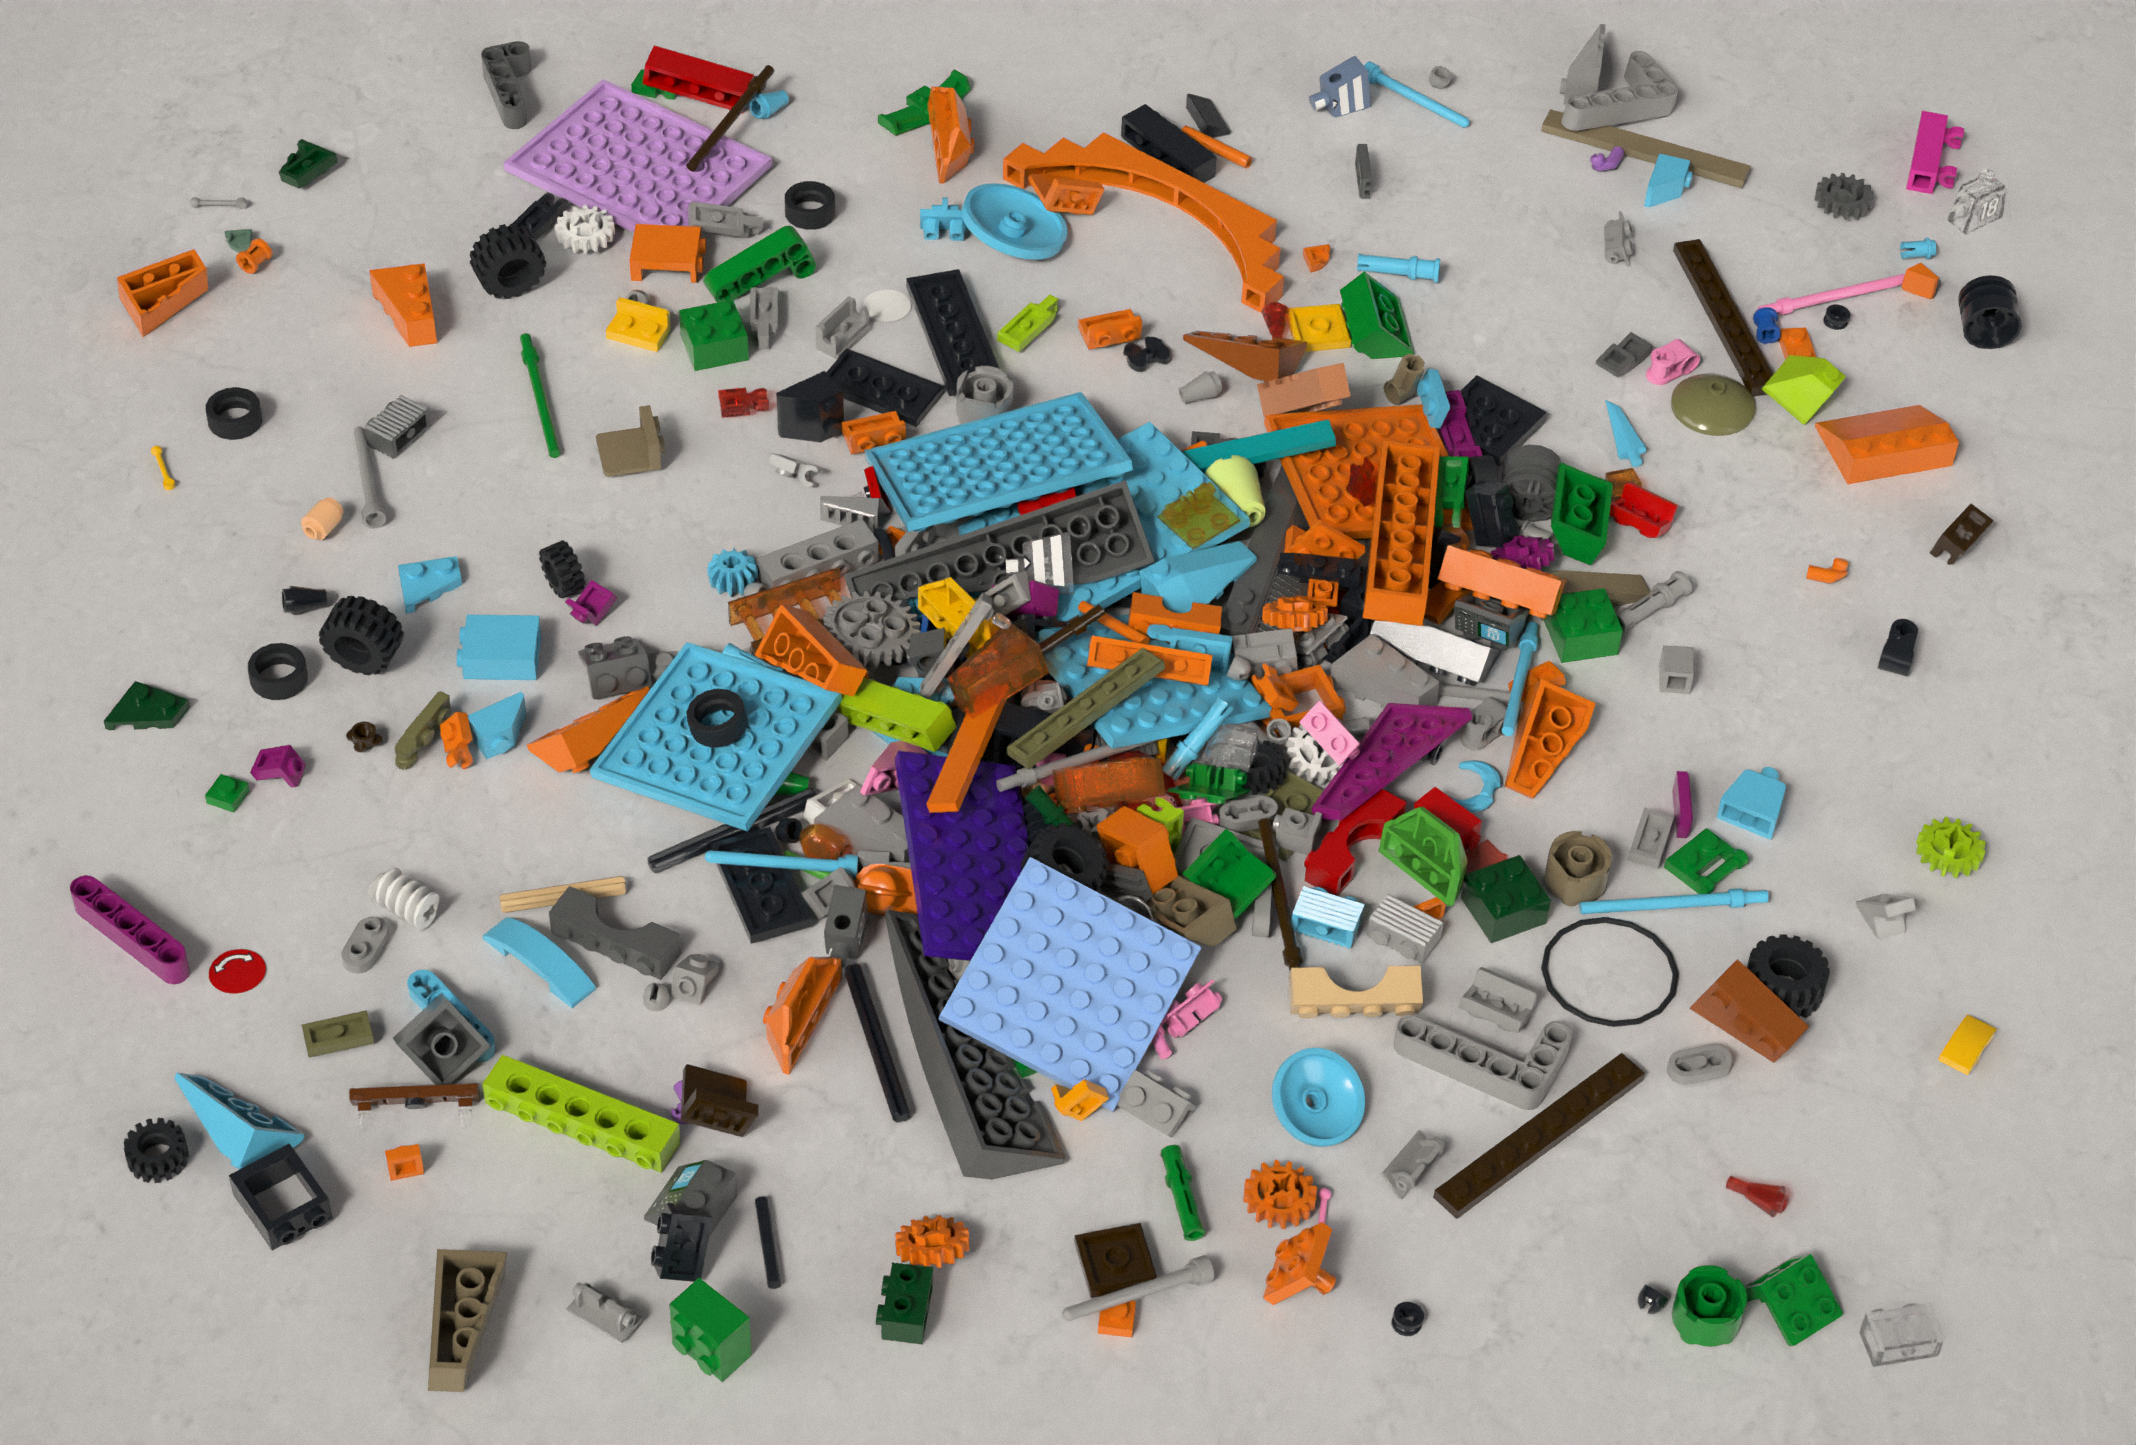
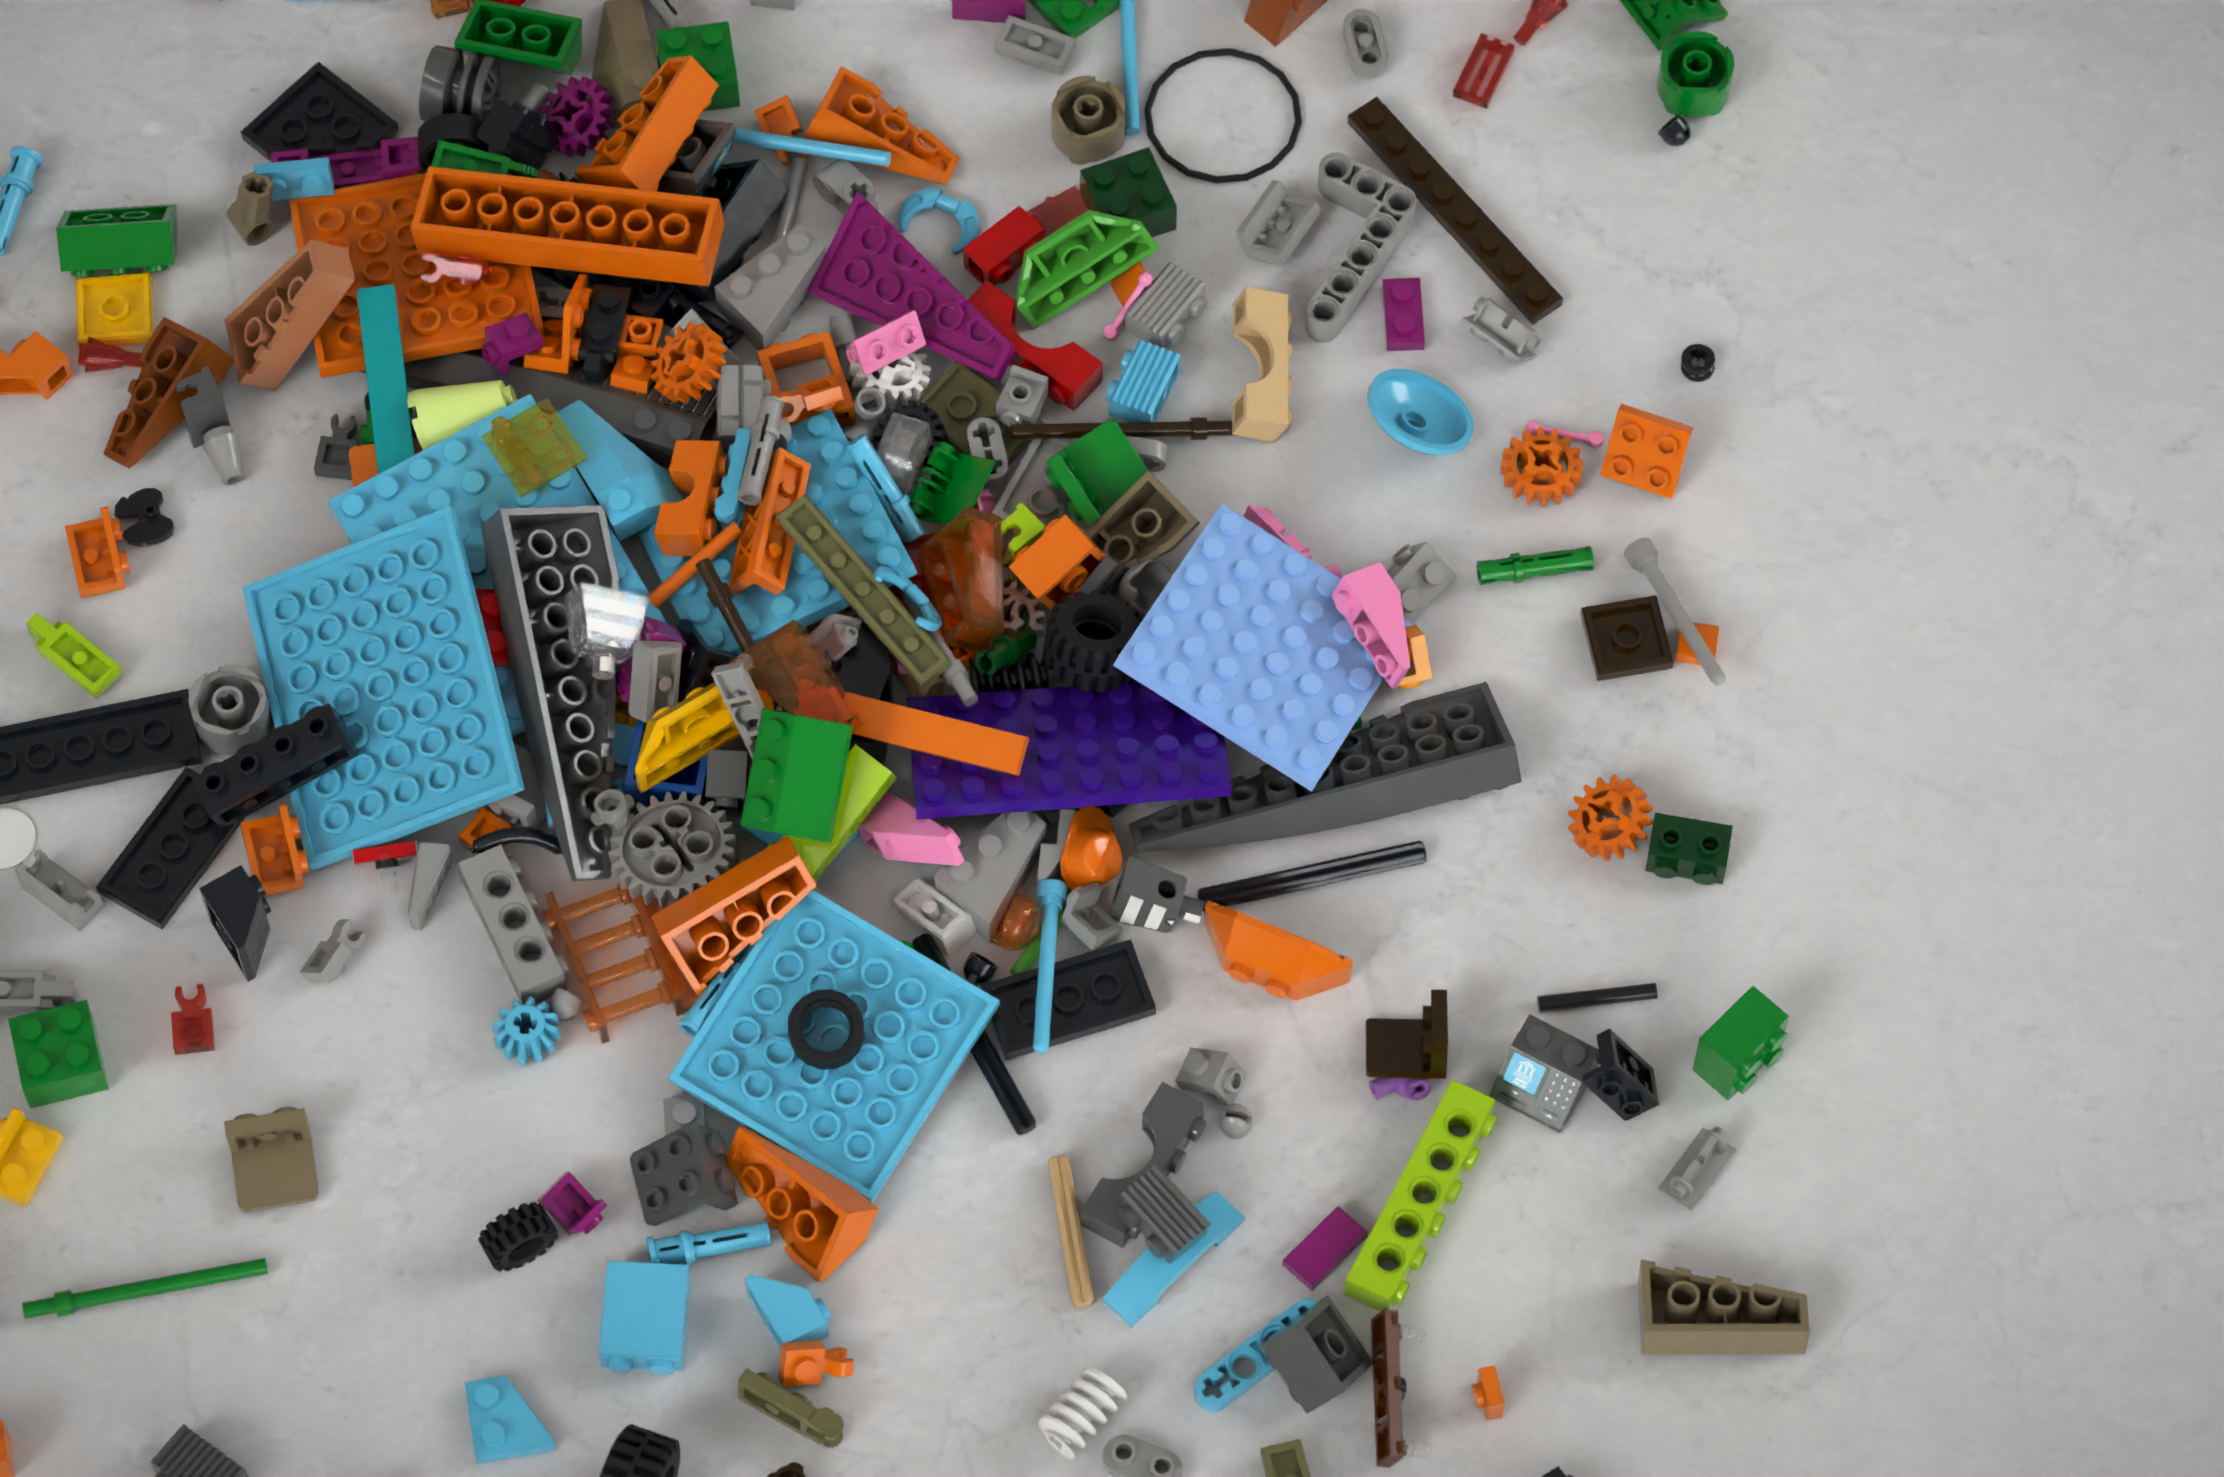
camera: 85 degrees left, 15 degrees up
(540, 1052) = (1324, 1248): none -> magenta tile
(557, 928) = (1162, 1215): none -> dark grey brick
(565, 706) = (687, 1247): none -> medium azure pin
(901, 587) = (612, 808): none -> light grey plate
(912, 661) = (796, 775): none -> green slope
(932, 413) = (275, 765): none -> black brick
(1079, 756) = (931, 619): none -> medium azure piece
(1107, 1057) = (1376, 616): none -> bright pink slope
(1214, 646) = (764, 436): none -> light grey pin
(1232, 363) = (205, 409): none -> dark grey hinge
(1289, 588) = (632, 373): none -> orange plate
(1300, 511) = (510, 341): none -> magenta bracket
(1419, 900) = (1112, 330): none -> bright pink hinge
(1427, 1098) = (1403, 314): none -> magenta plate
(1691, 1150) = (1494, 47): none -> clear red tile

